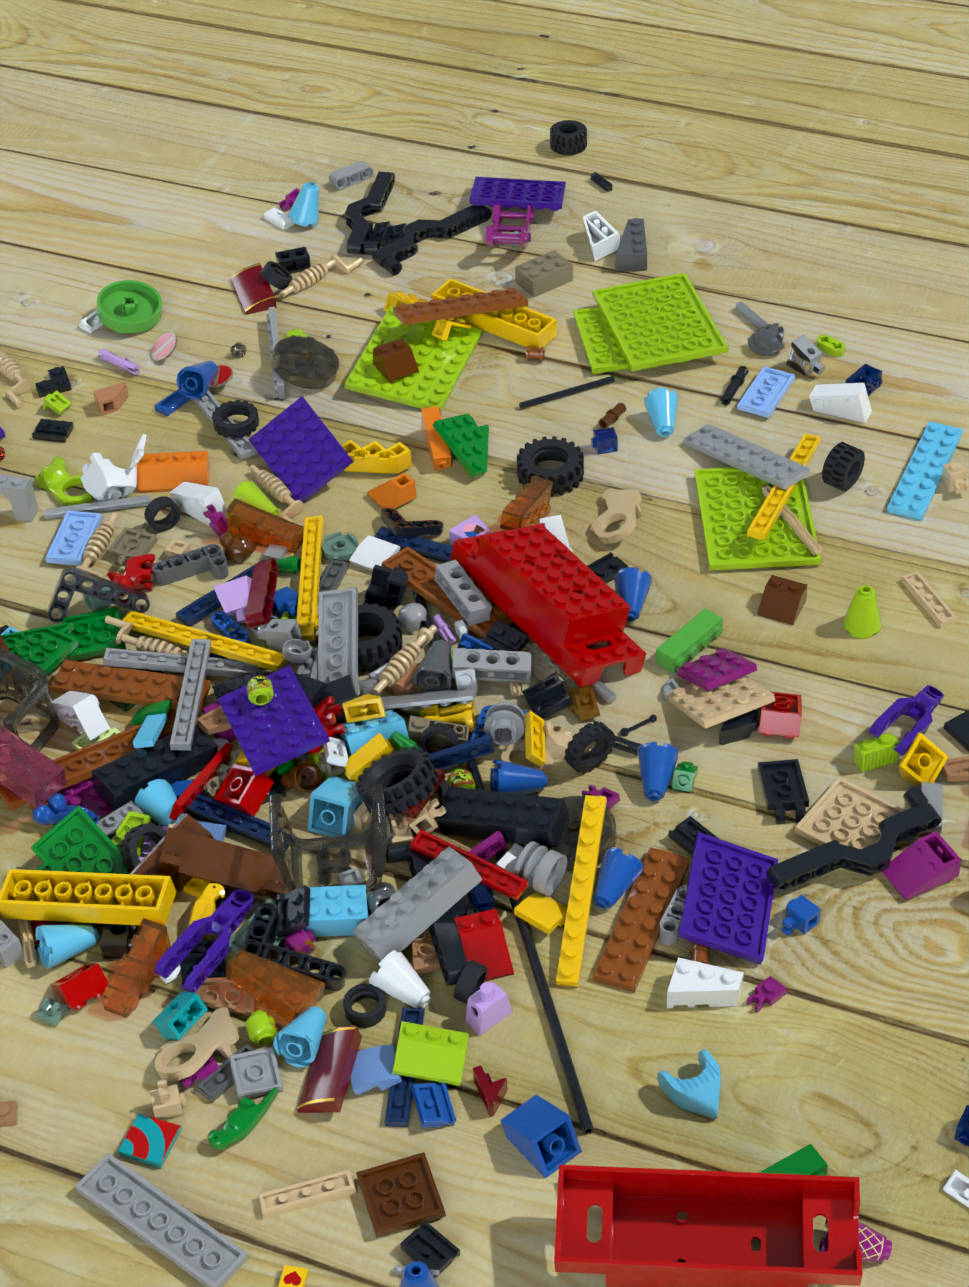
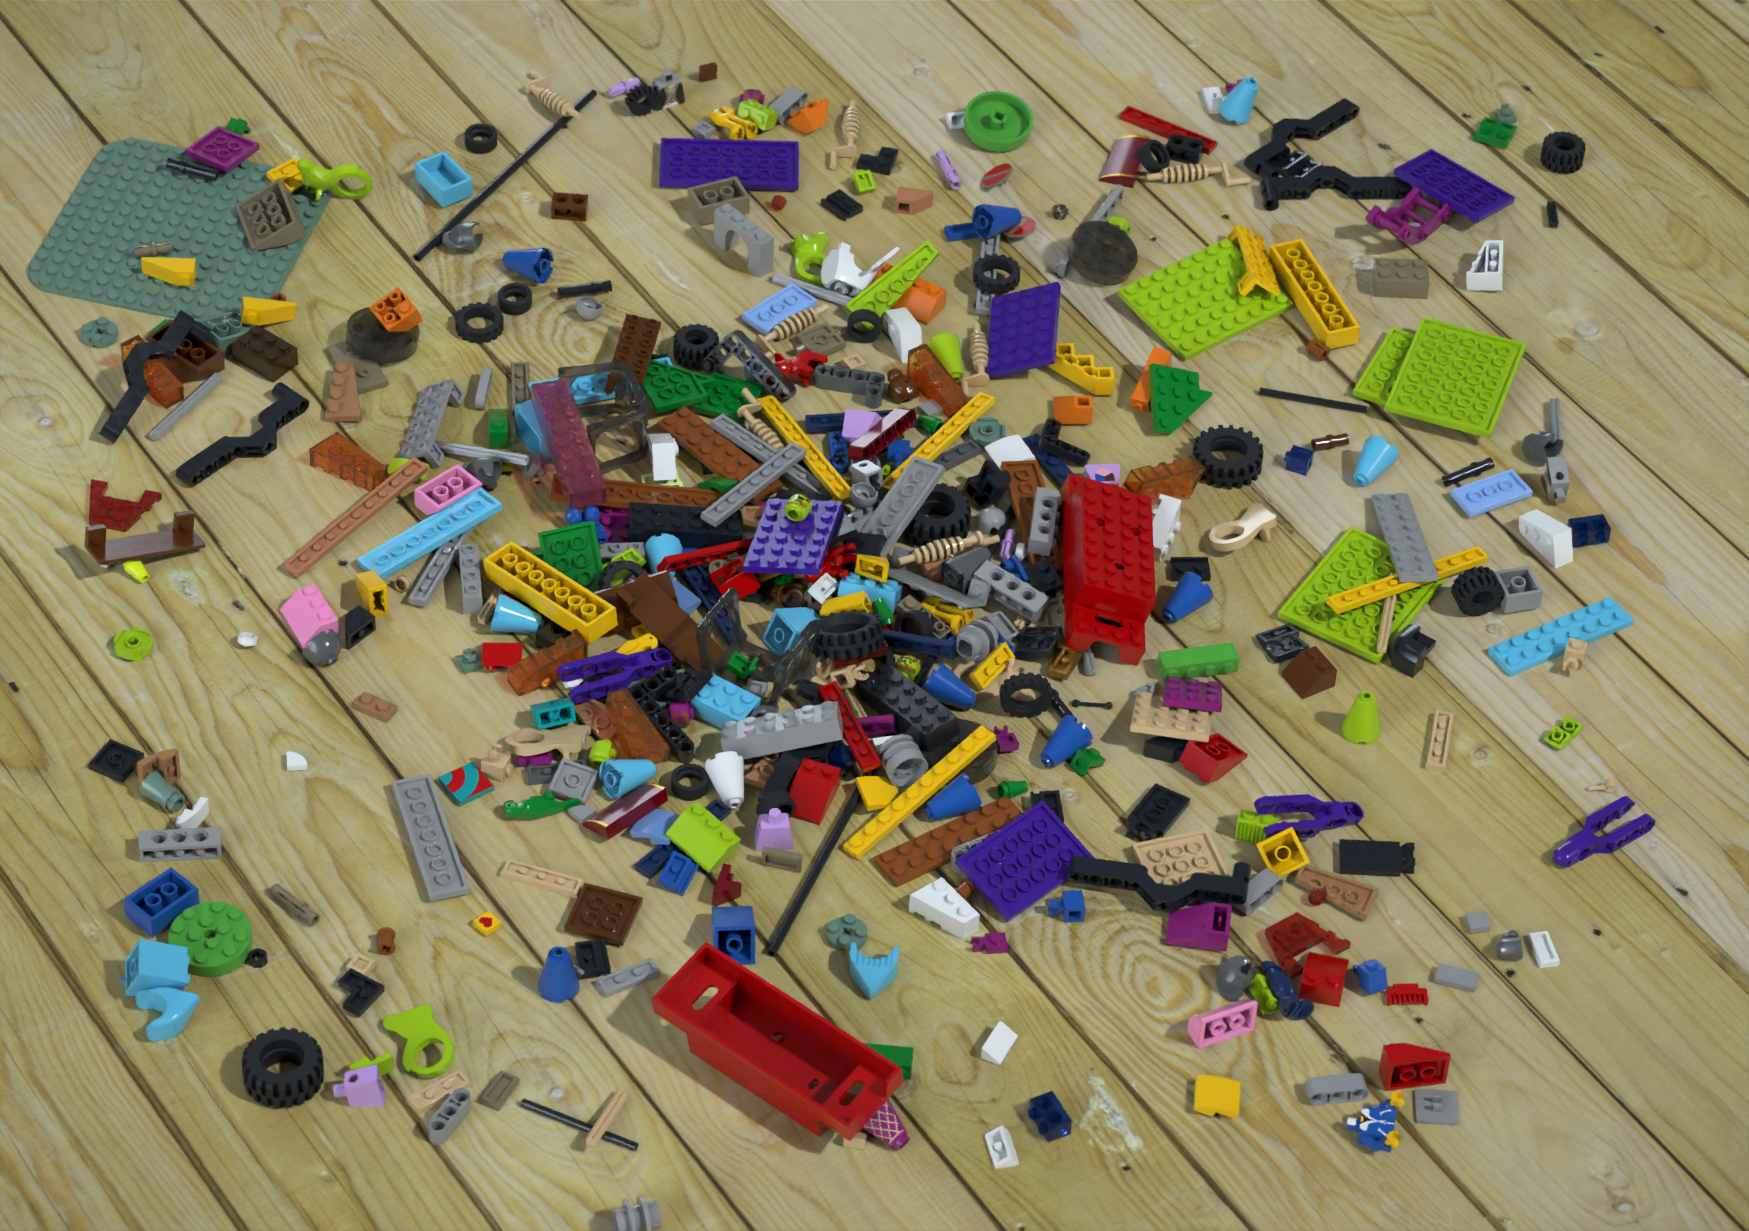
camera: 30 degrees right, 0 degrees up
(27, 604) = (694, 344): none -> black tyre
(150, 730) = (700, 496): medium azure tile -> none
(160, 467) = (894, 283): none -> lime wing
(218, 520) = (902, 355): magenta plate -> none
(255, 254) = (1163, 127): none -> red tile
(288, 1100) = (582, 812): none -> light grey tile
(320, 865) = (741, 666): none -> green bracket
(351, 175) = (1318, 89): light grey beam -> none
(395, 360) = (1177, 291): reddish brown slope -> none
(460, 306) = (1277, 270): dark orange plate -> none
(479, 1247) = (628, 977): none -> light grey tile
(495, 696) = (1003, 625): none -> light grey tile
(500, 133) = (1505, 114): none -> sand green tile
(505, 148) = (1495, 132): none -> green slope
(516, 1029) = (782, 859): none -> dark tan tile
(632, 247) = (1510, 295): dark grey wedge -> none
(638, 1054) = (849, 924): none -> sand green plate
(648, 839) = (1011, 788): none -> green cone
(735, 589) = (1281, 642): none -> black slope
(830, 346) = (1596, 479): lime beam -> none
(837, 539) = (1409, 650): none -> black brick
(868, 1089) = (998, 1044): none -> white slope
(874, 446) = (1519, 589): none -> light grey brick

